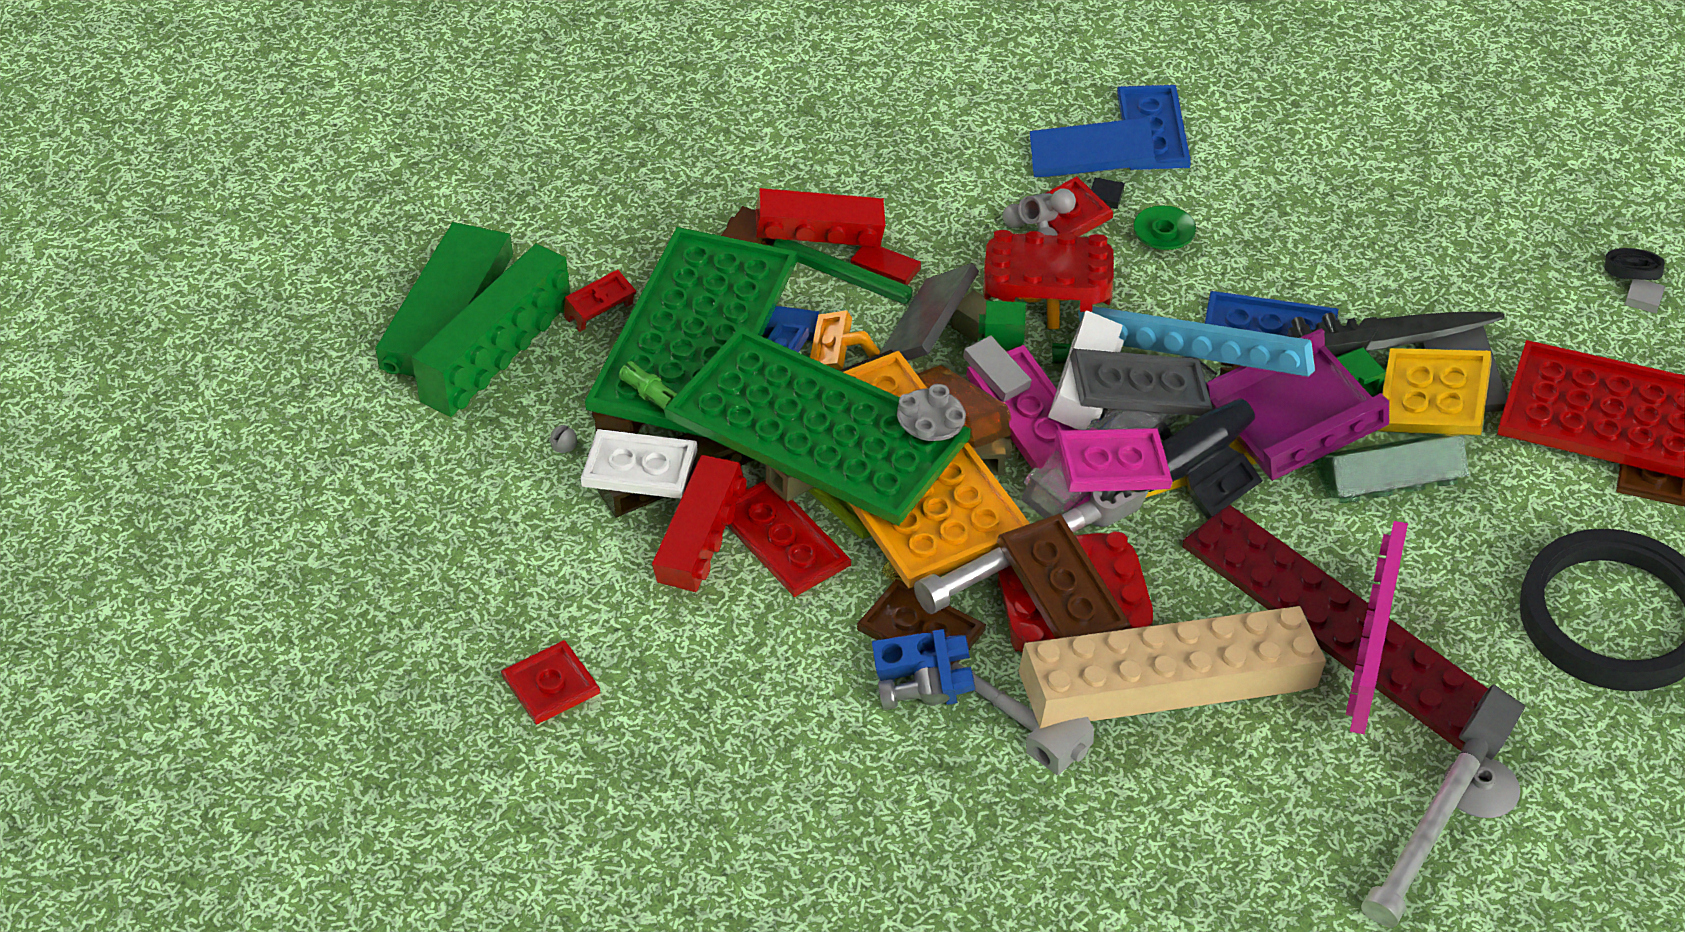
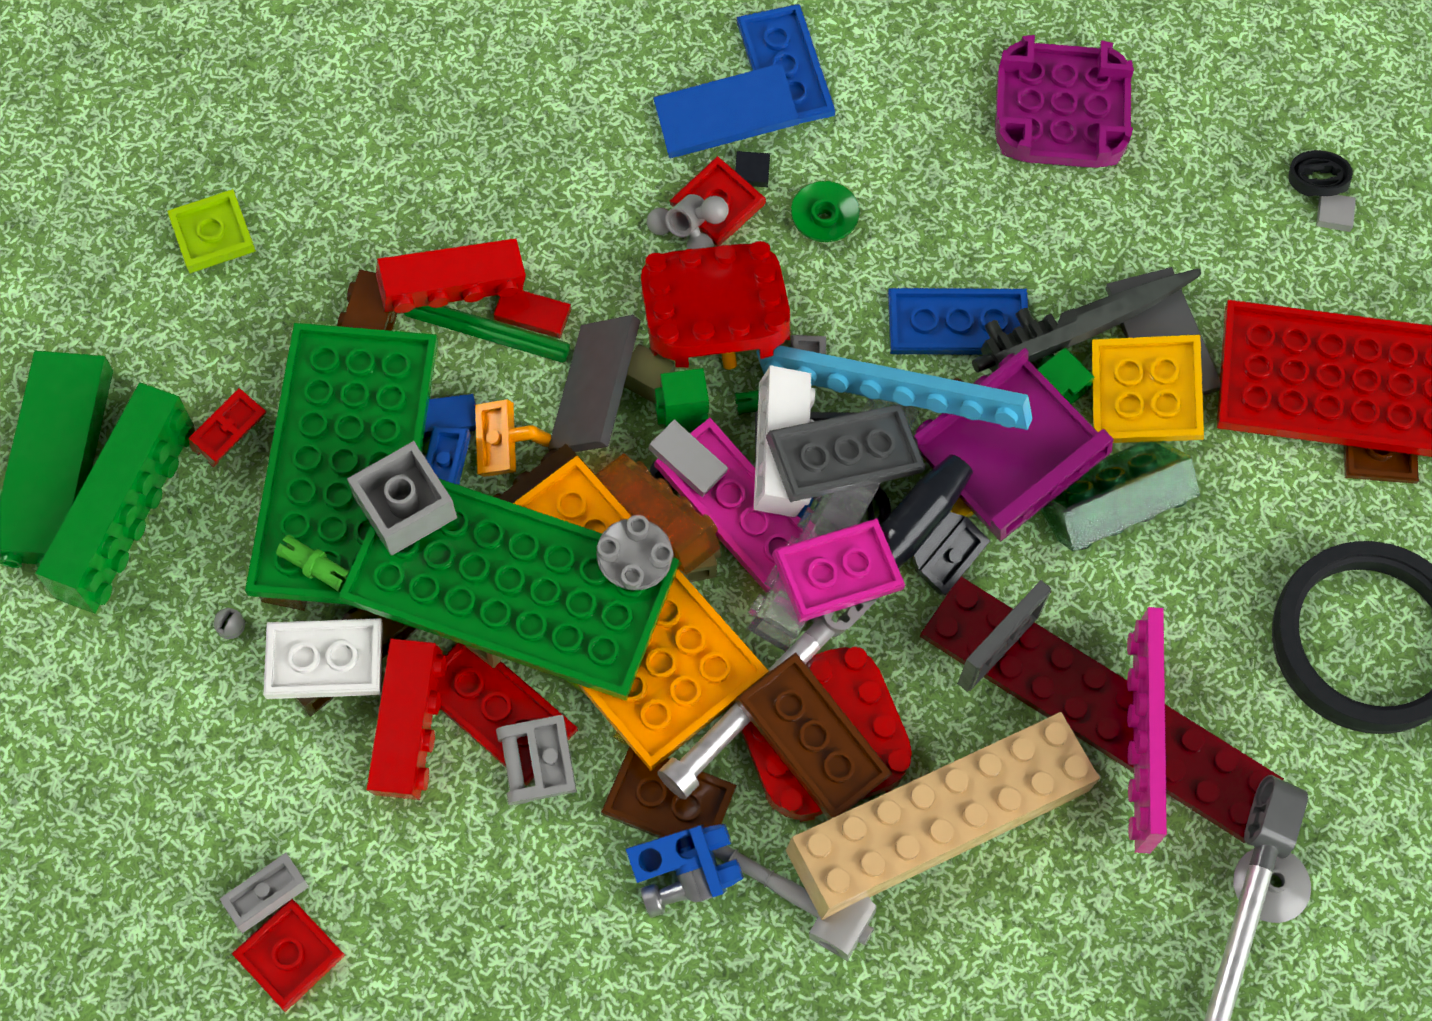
camera: 15 degrees left, 20 degrees up
(541, 630) = (264, 893): none -> light grey plate
(623, 170) = (211, 231): none -> lime plate
(738, 339) = (402, 498): none -> light grey brick
(820, 571) = (548, 755): none -> light grey plate
(1256, 536) = (1004, 636): none -> dark grey tile
(1401, 183) = (1063, 104): none -> magenta plate

